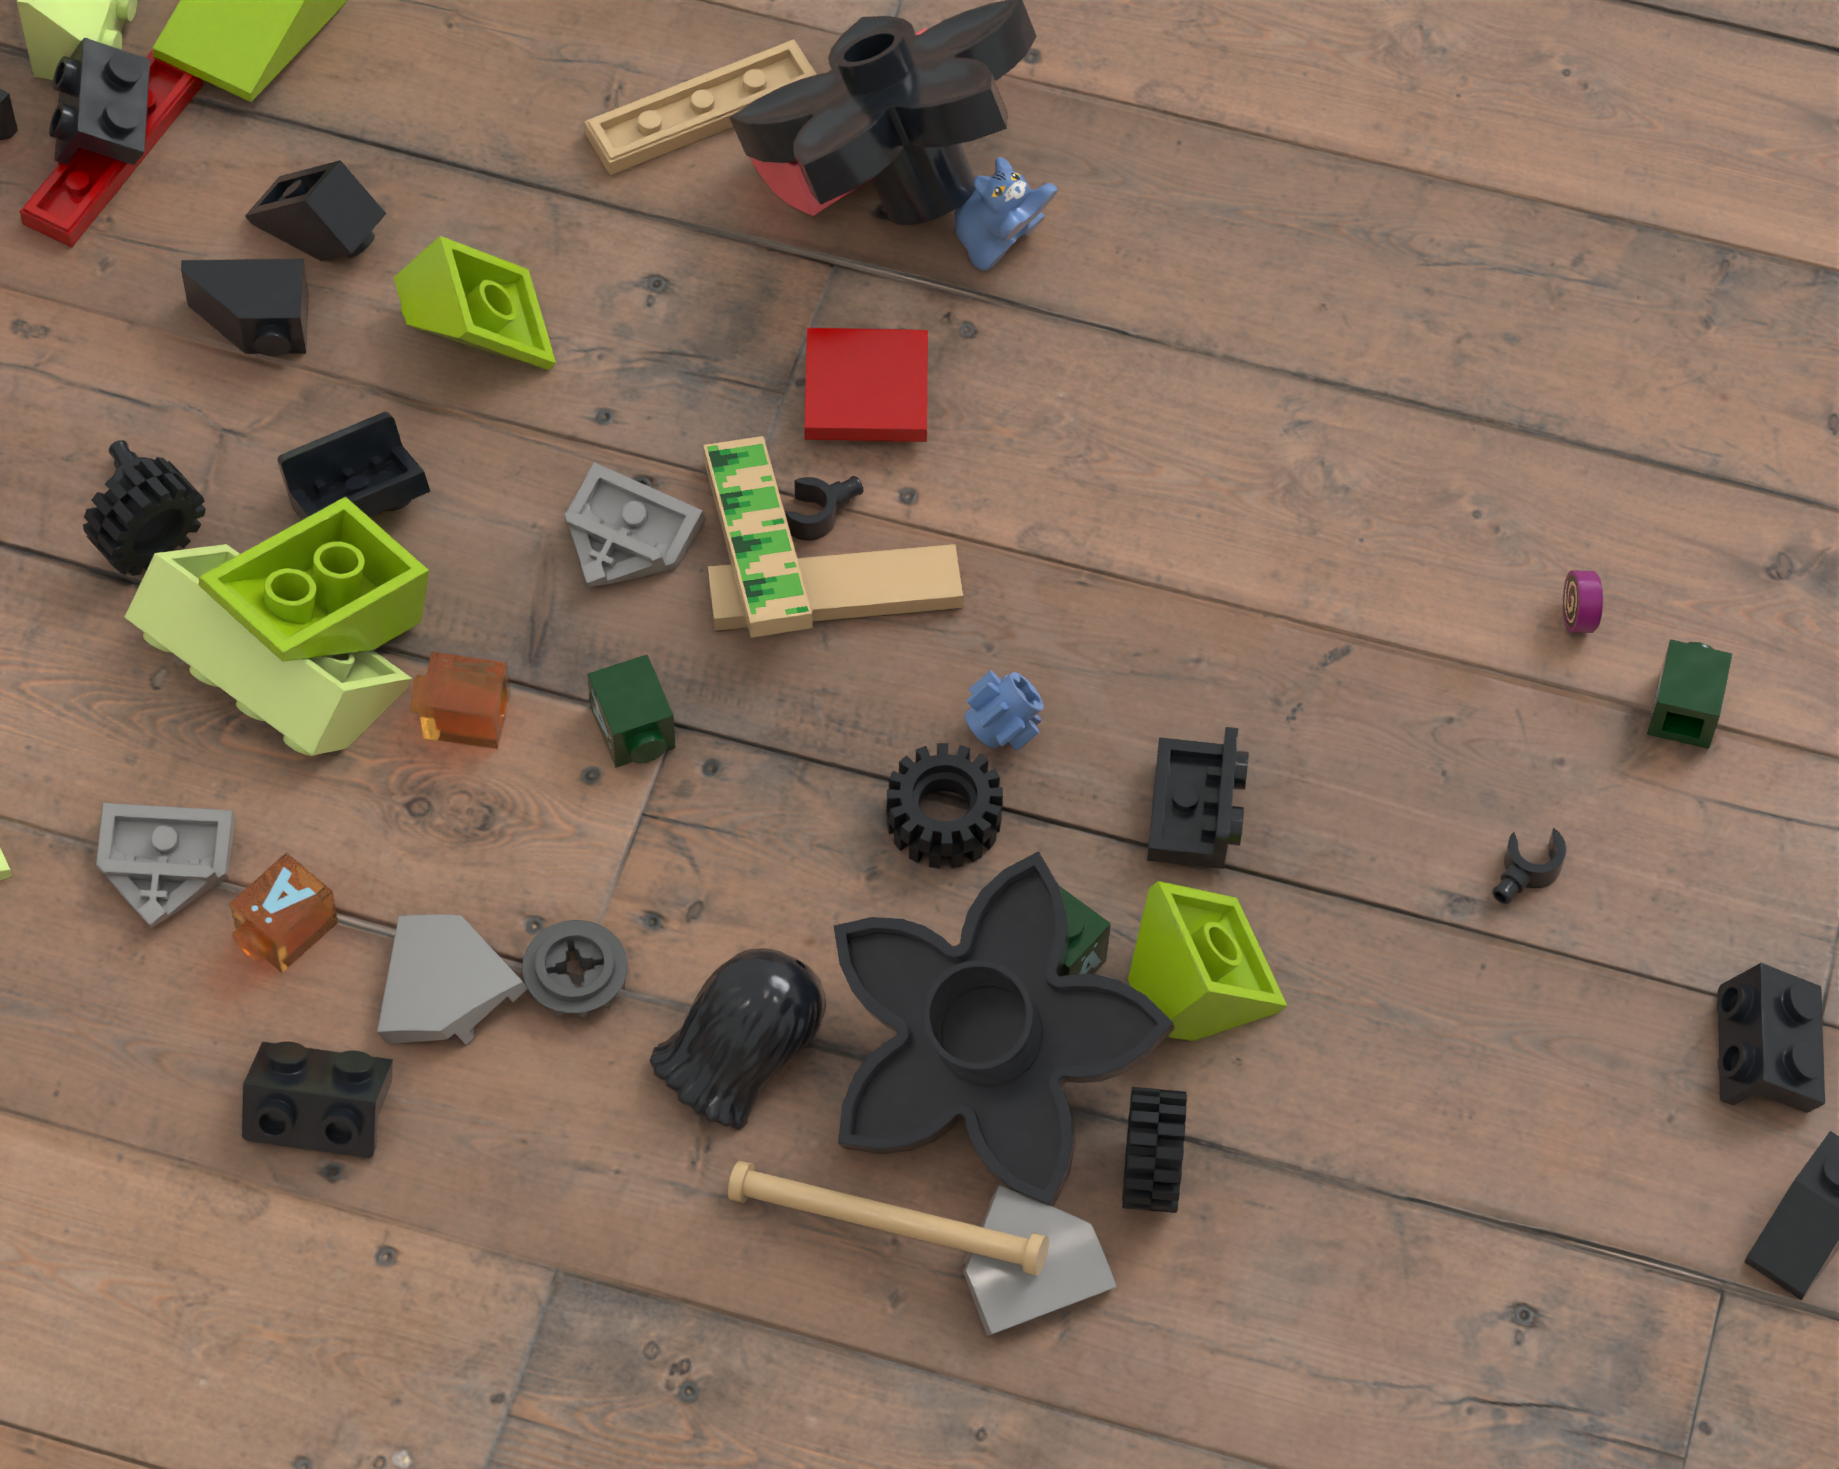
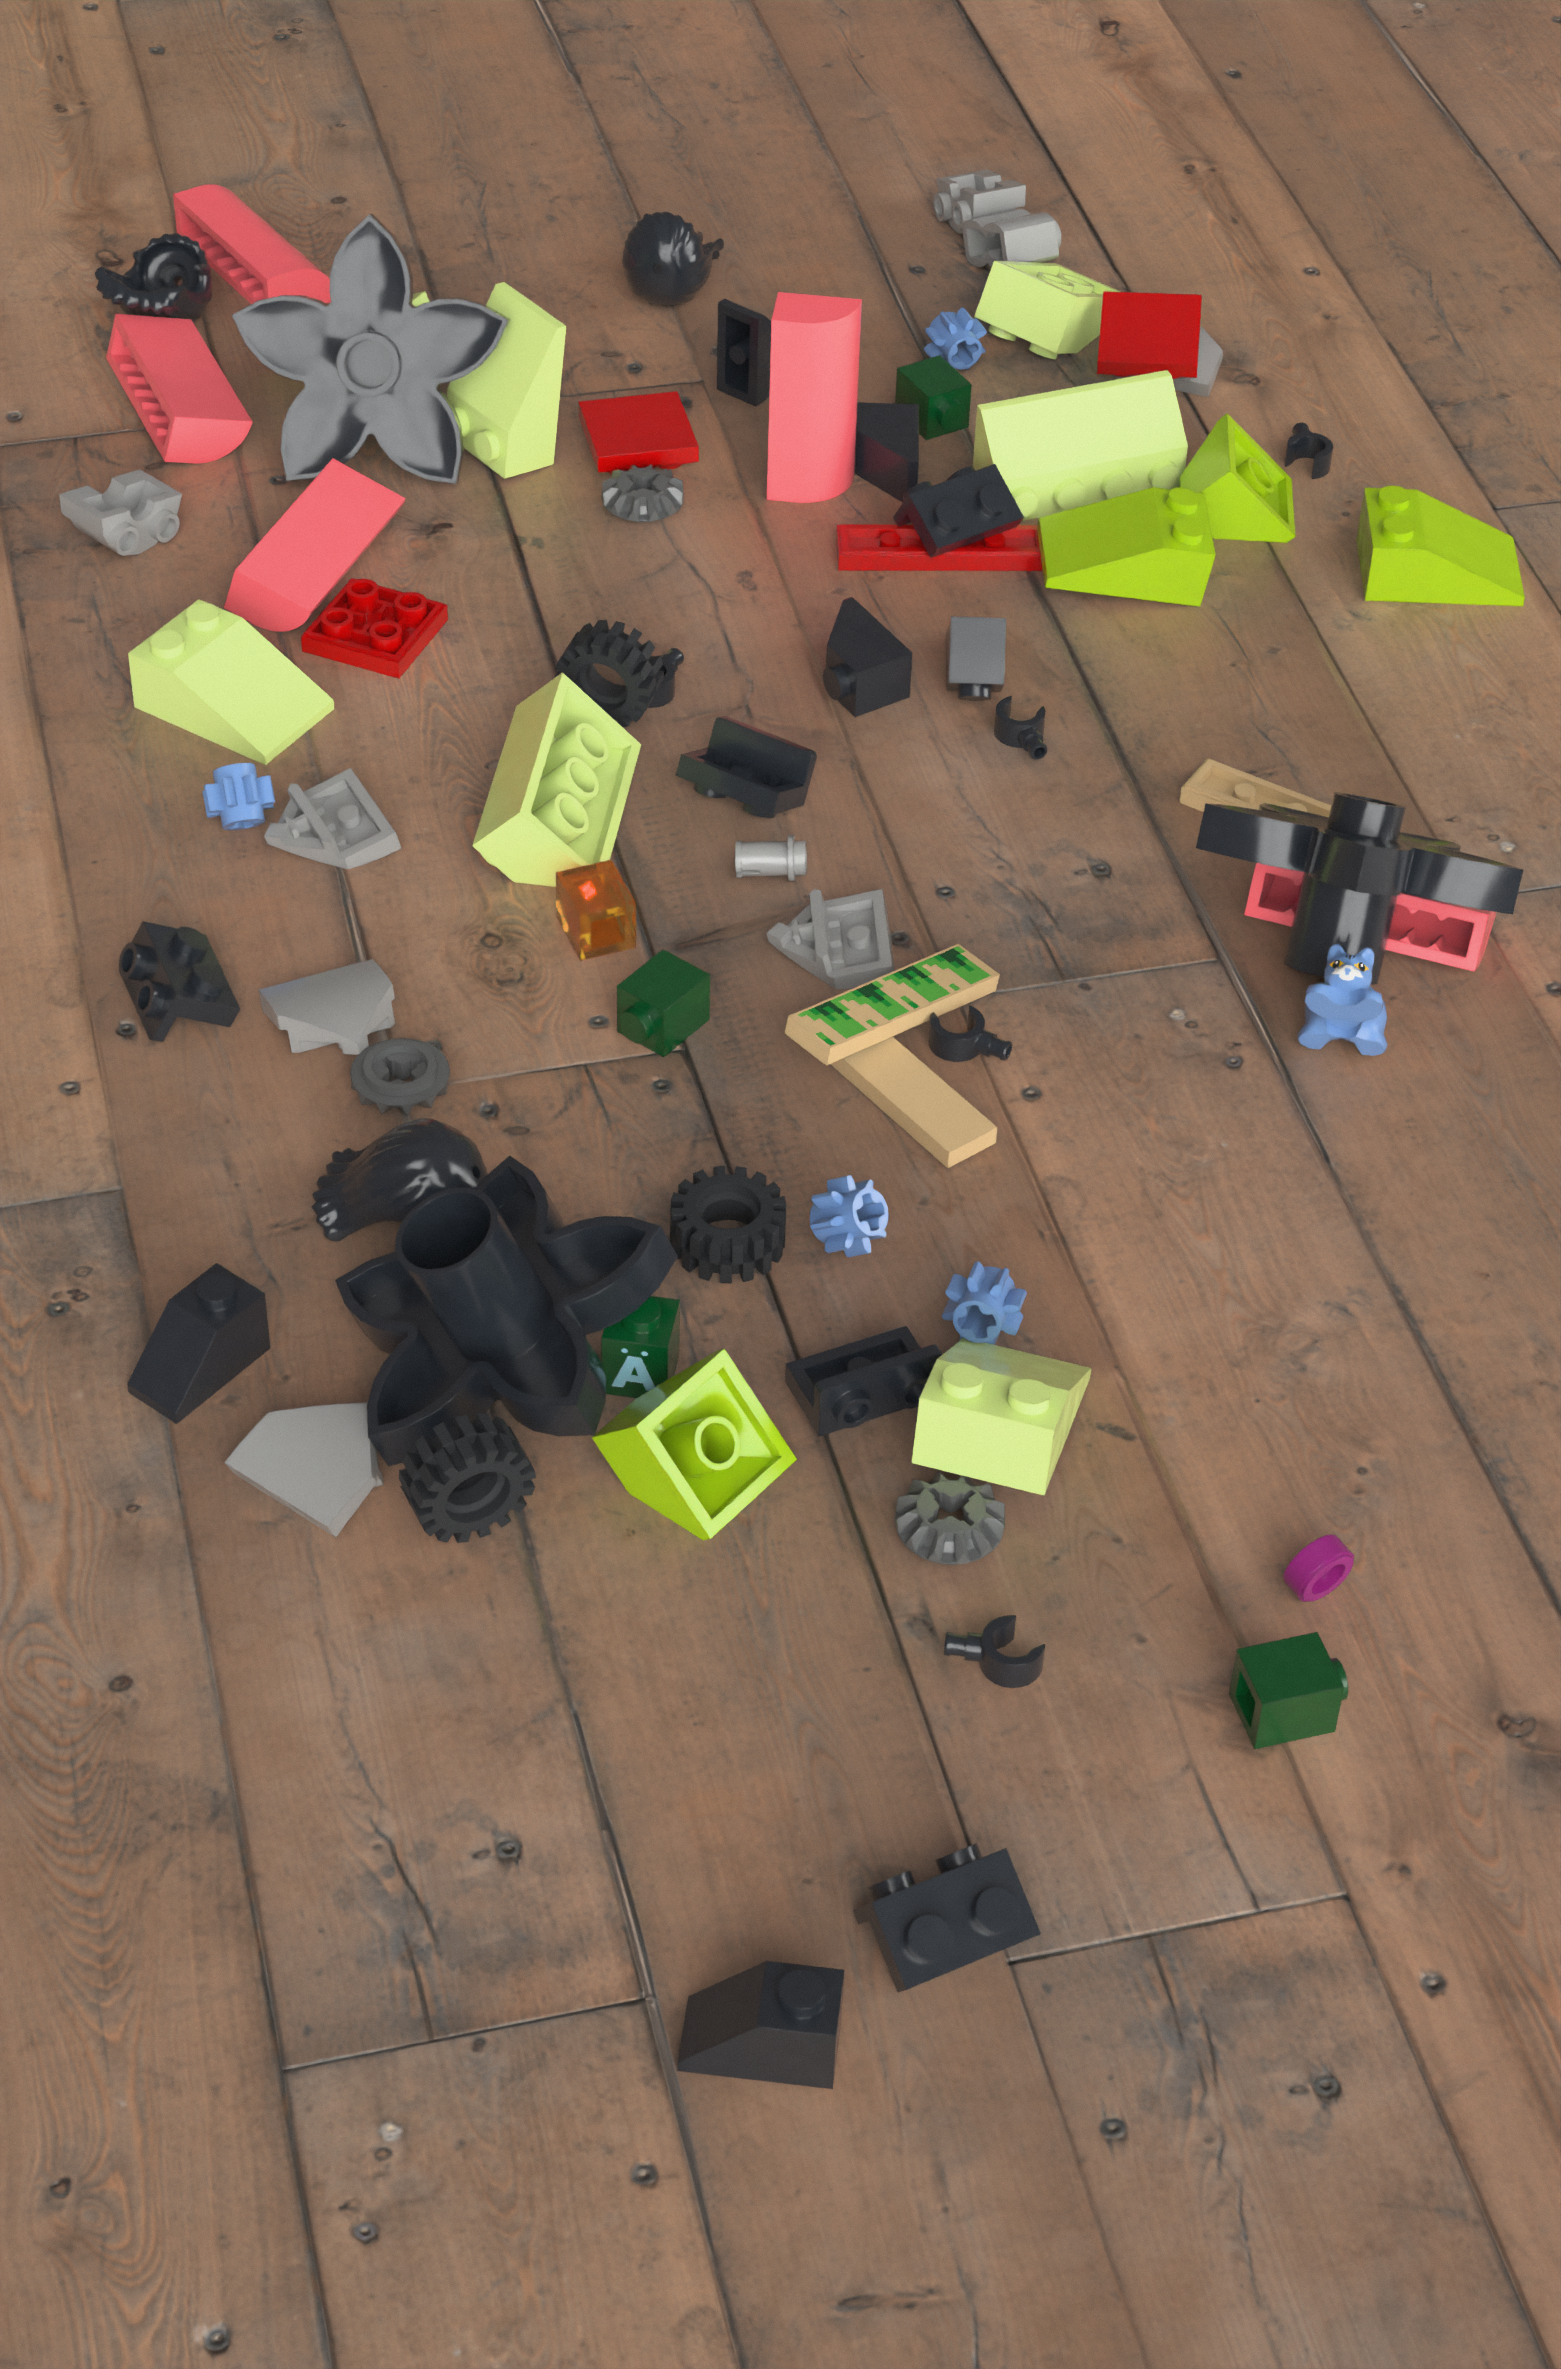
camera: 60 degrees right, 15 degrees down
(84, 919) = (238, 796): none -> medium blue gear
(282, 914) = (323, 894): clear orange brick -> none
(323, 586) = (609, 774): lime slope -> none
(413, 245) = (1020, 734): none -> black piece
(475, 302) = (972, 767): lime slope -> none
(492, 513) = (771, 858): none -> light grey pin
(748, 1183) = (302, 1434): tan bar -> none
(841, 1290) = (201, 1343): none -> black slope
(866, 384) = (1107, 1011): red tile -> none
(1171, 668) = (984, 1304): none -> medium blue gear
(1301, 716) = (997, 1414): none -> yellowish green slope
(1354, 840) = (949, 1539): none -> dark grey gear

